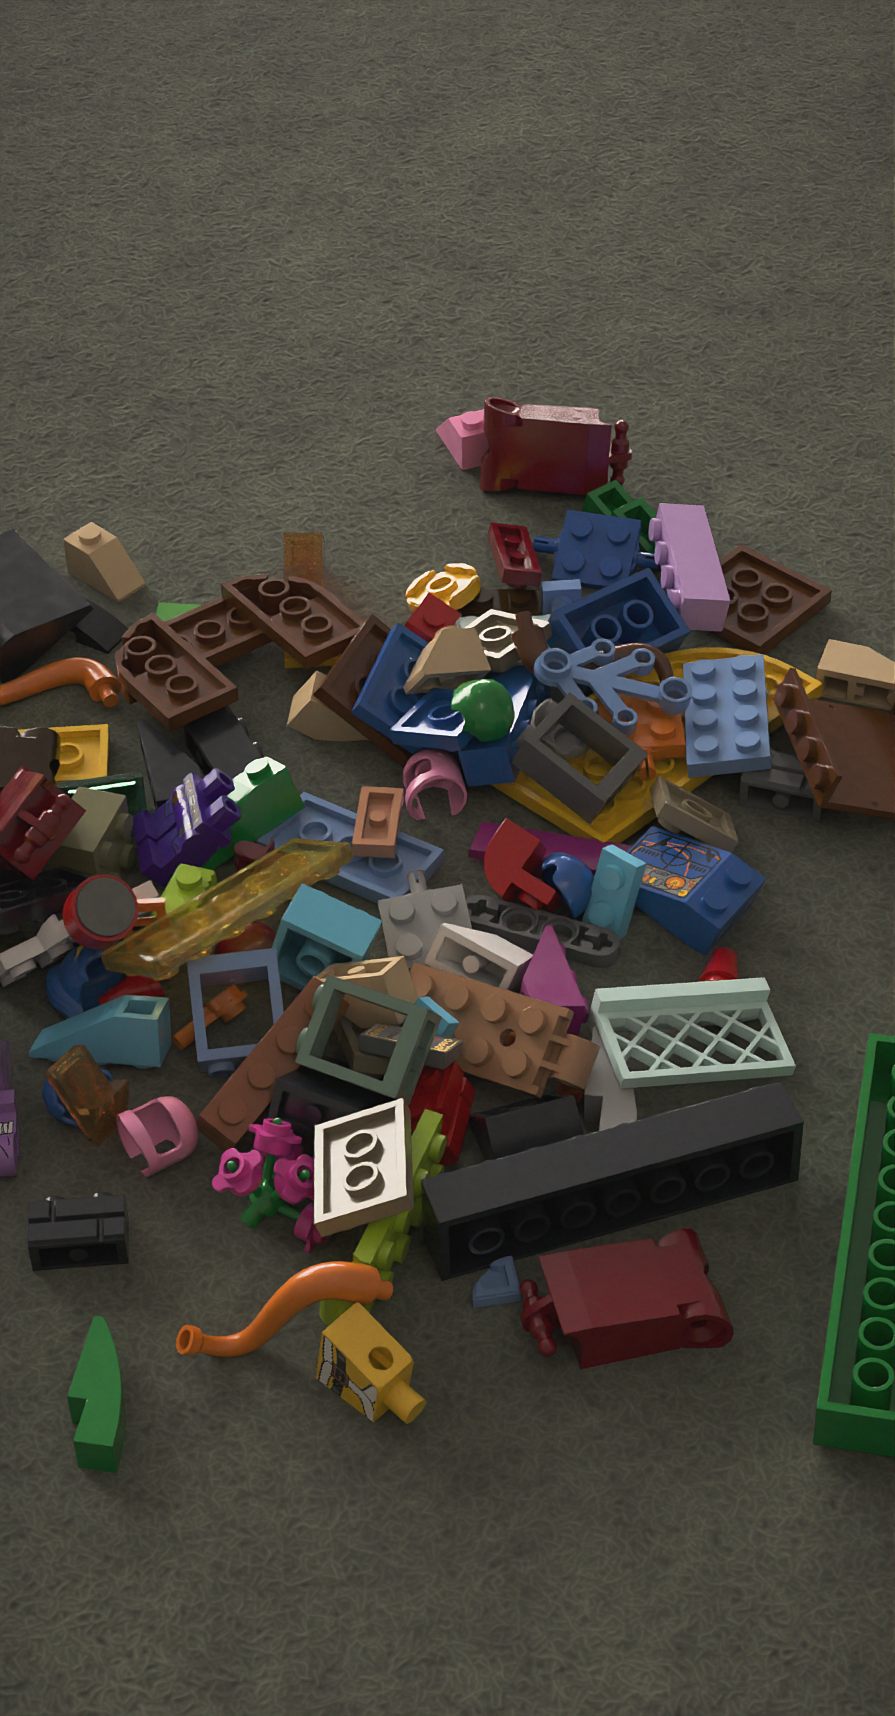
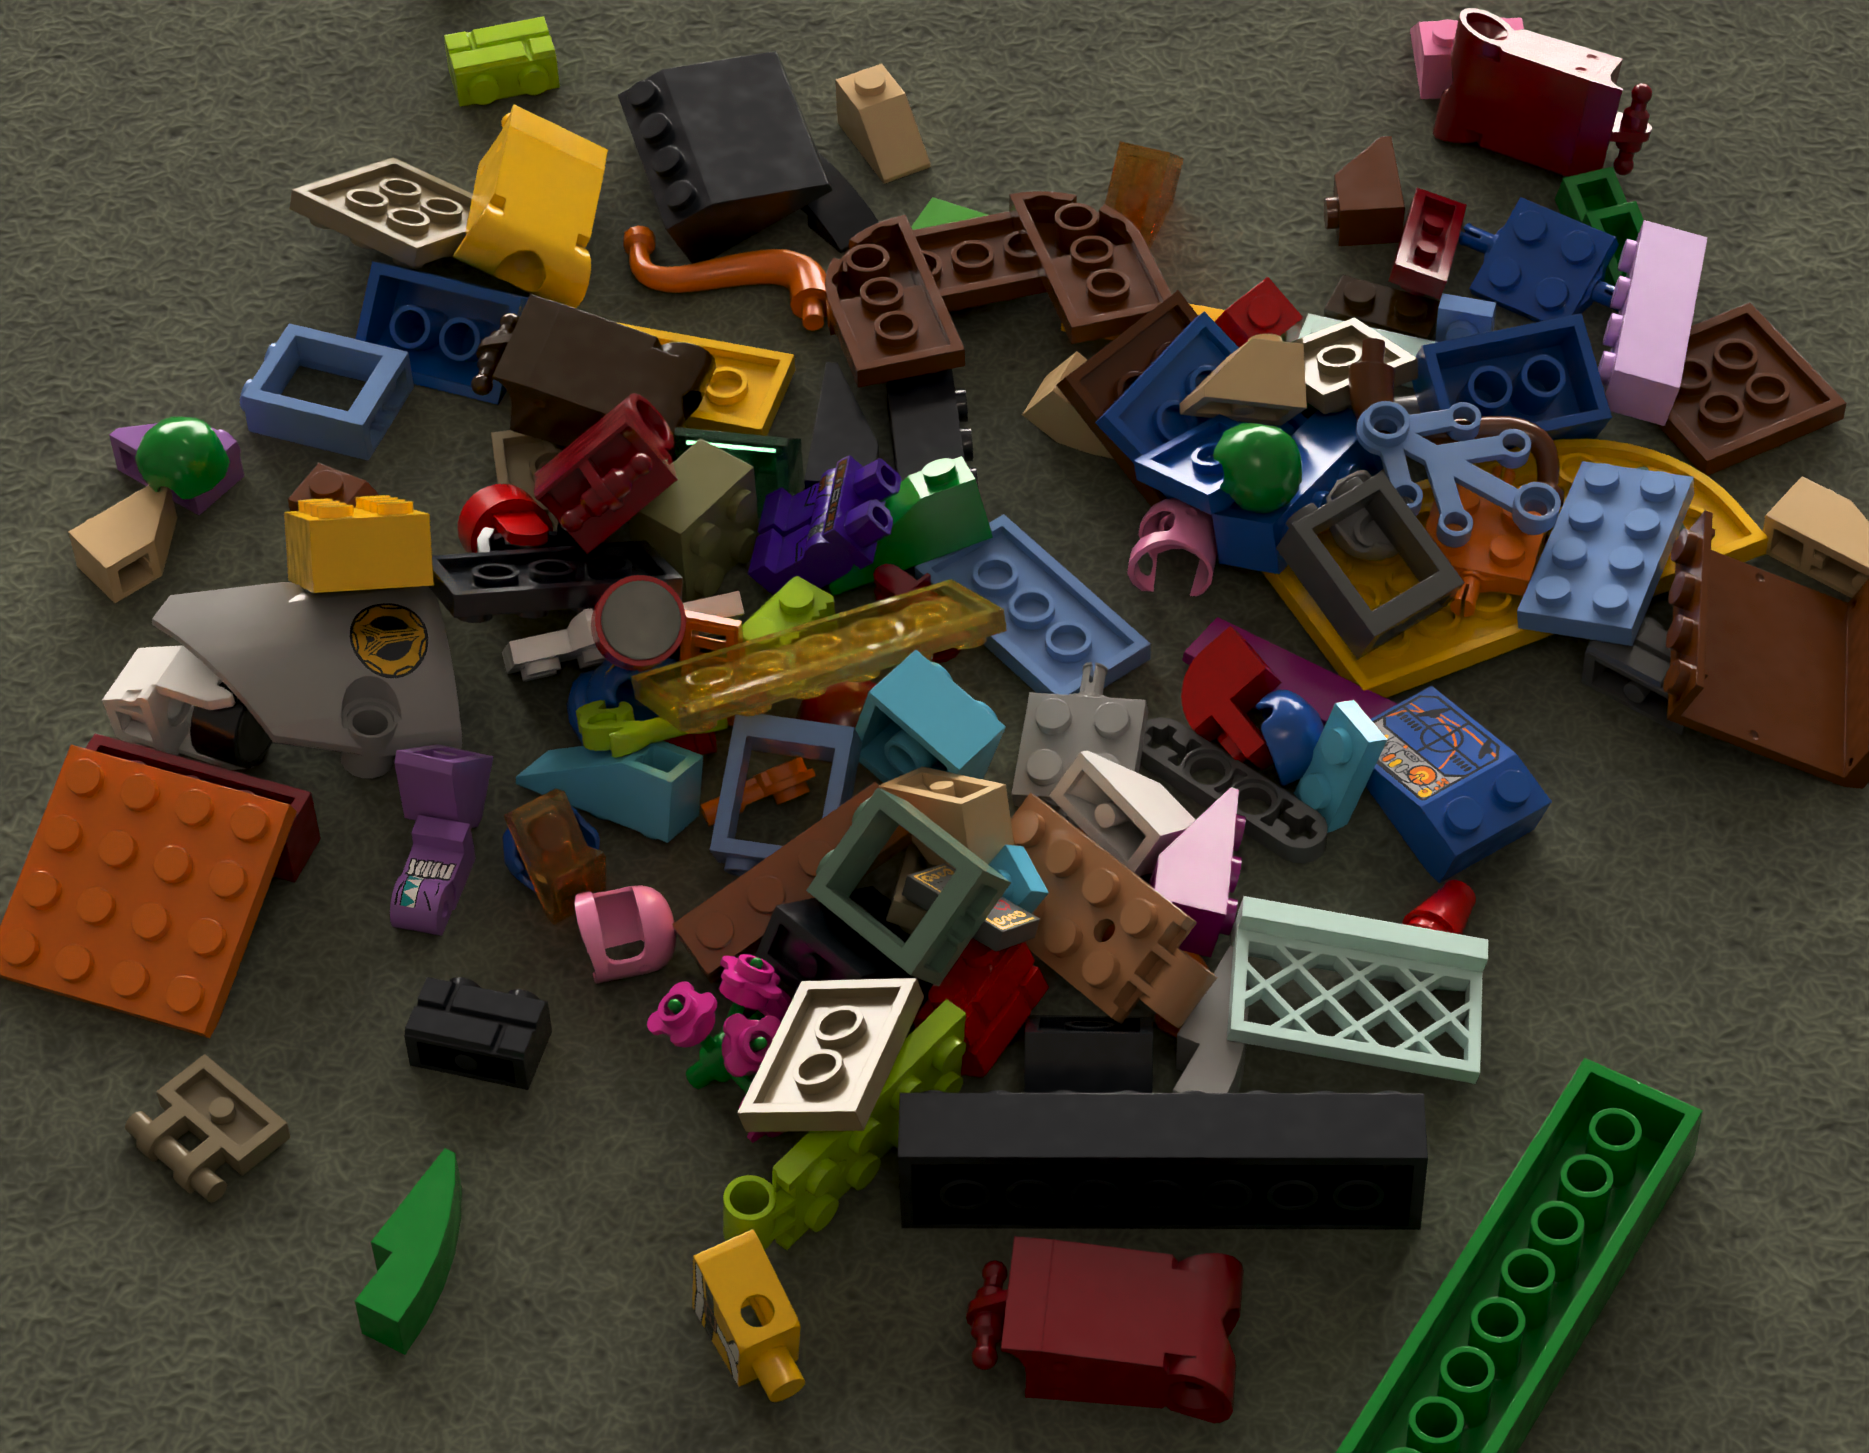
camera: 20 degrees right, 5 degrees up
(99, 996) = (619, 732): none -> lime helmet
(311, 1285) = (700, 1192): orange animal -> none
(377, 822) = (1074, 583): nougat plate -> none
(454, 586) = (1313, 272): yellow tile -> none
(461, 535) = (1367, 198): none -> reddish brown slope
(497, 1284) = (965, 1253): medium blue tile -> none
(687, 812) = (1495, 686): dark tan plate -> none

